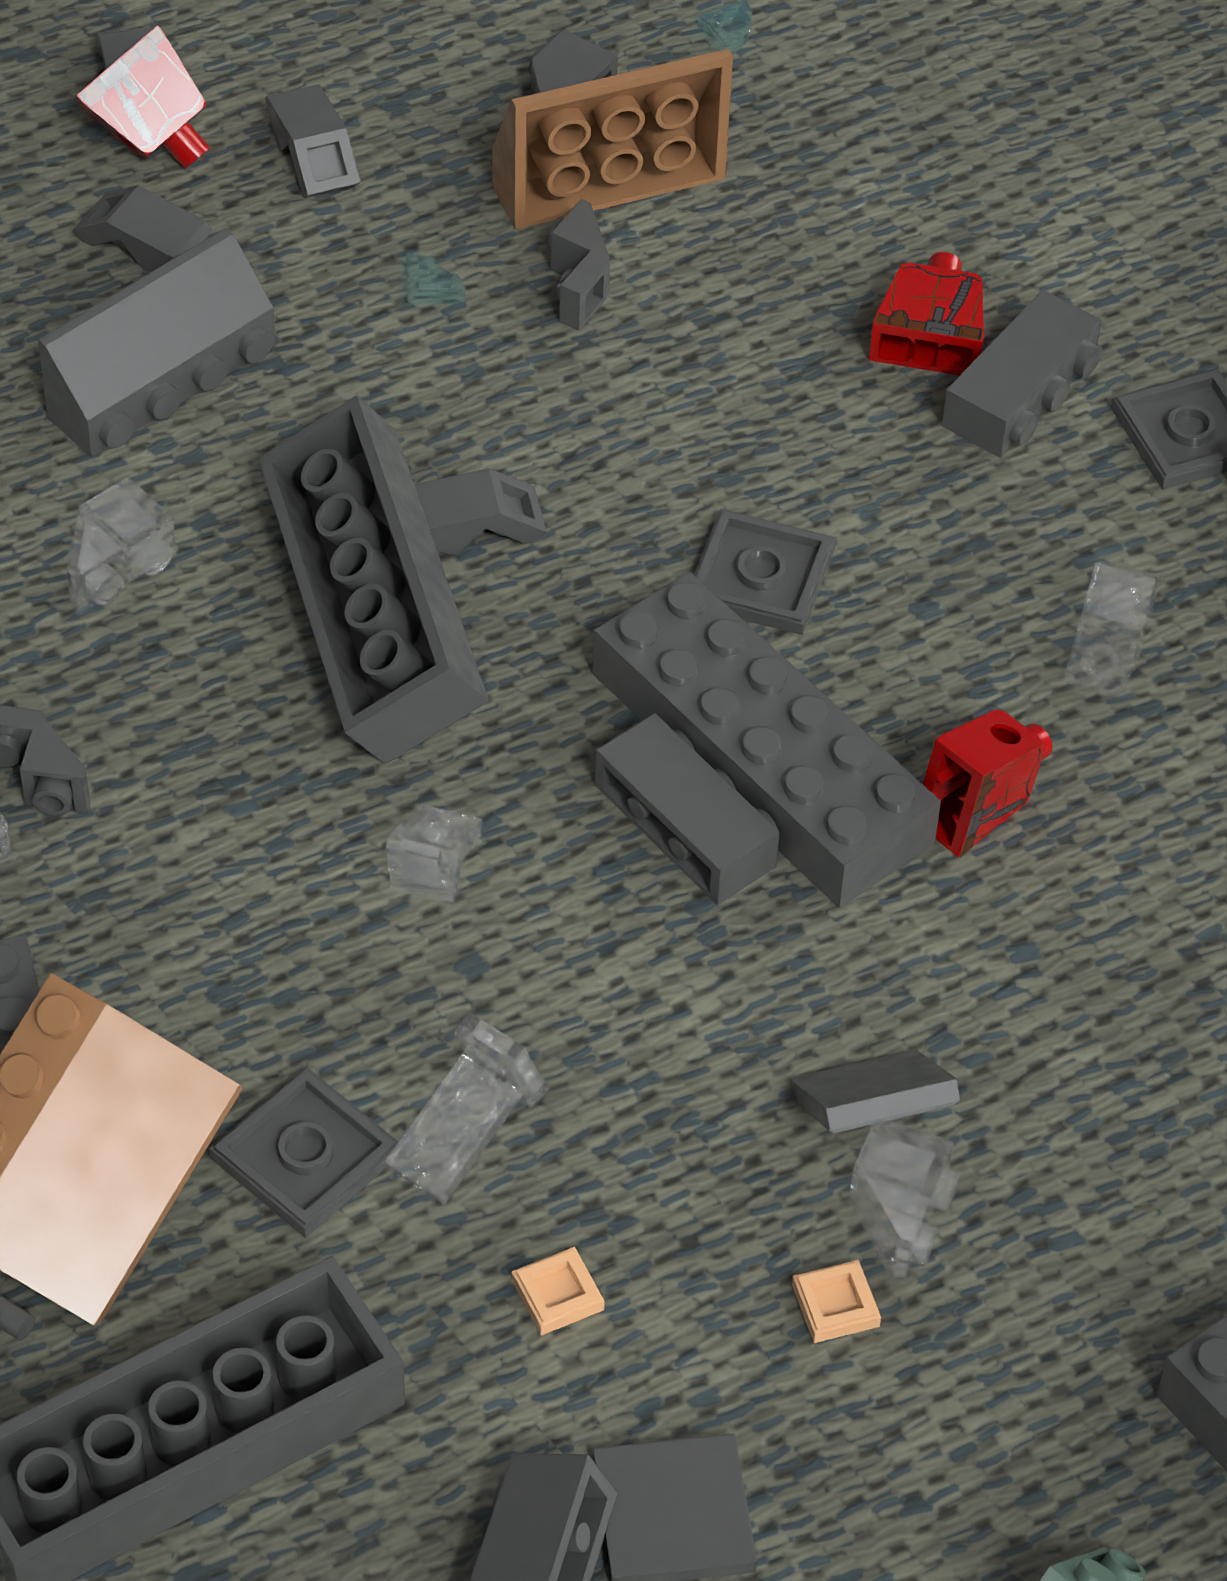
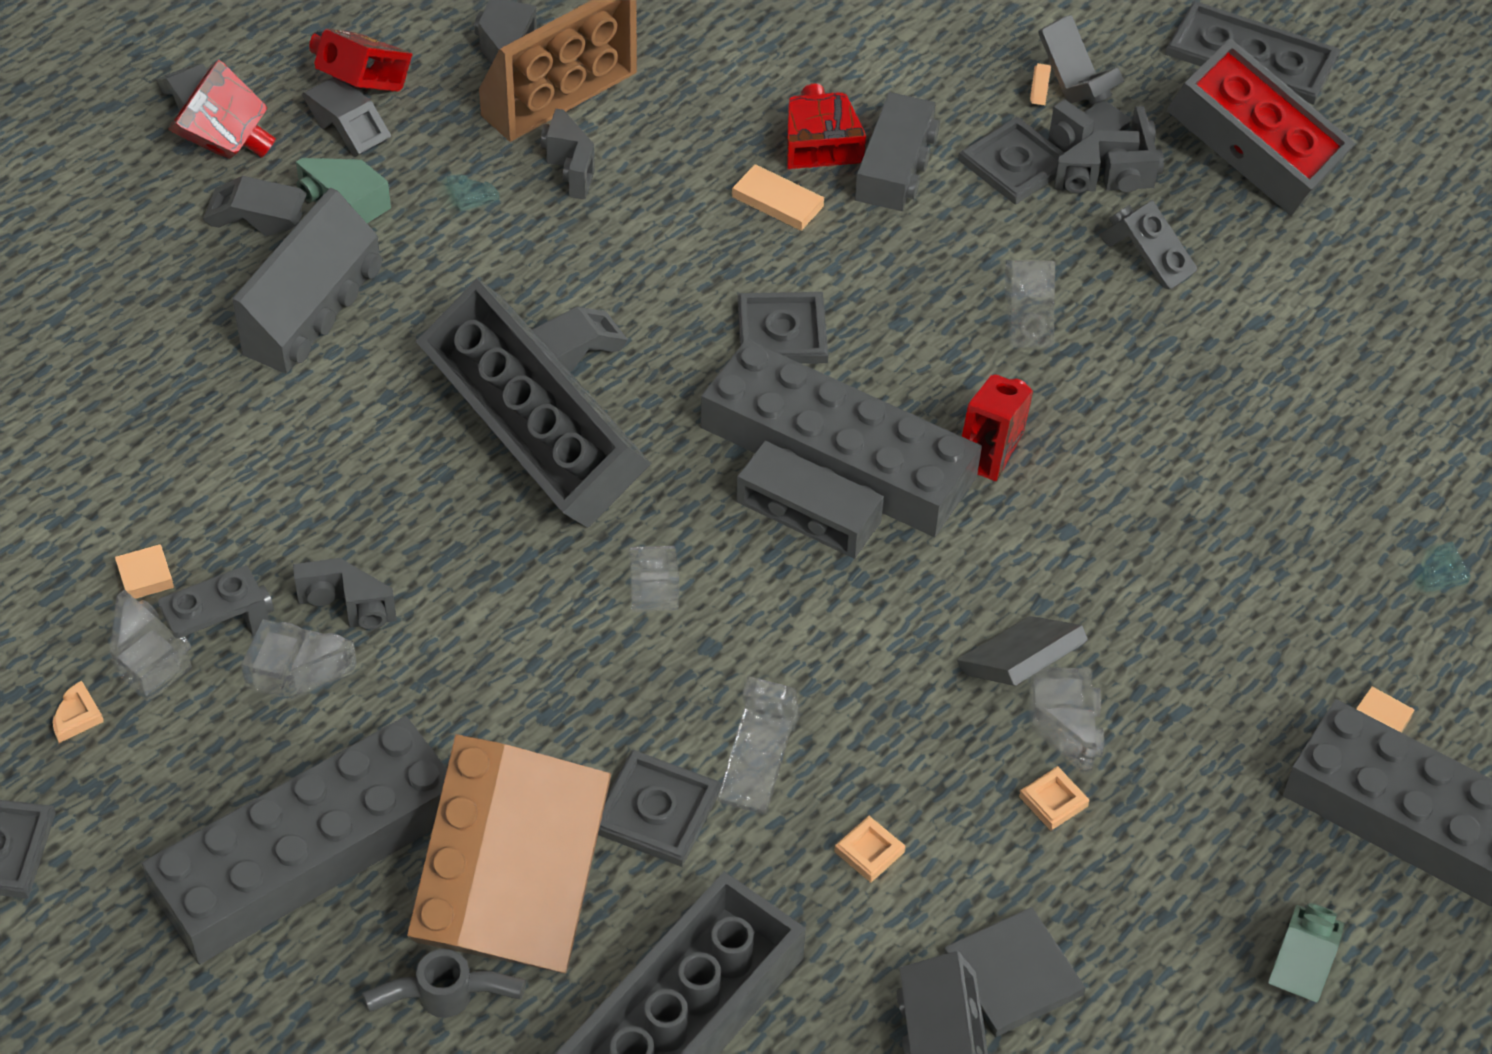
camera: 20 degrees left, 0 degrees up
(116, 542) = (337, 425): clear slope -> none
(270, 233) = (351, 177): none -> sand green slope
(335, 64) = (346, 56): none -> red torso
(836, 394) = (778, 197): none -> light nougat tile

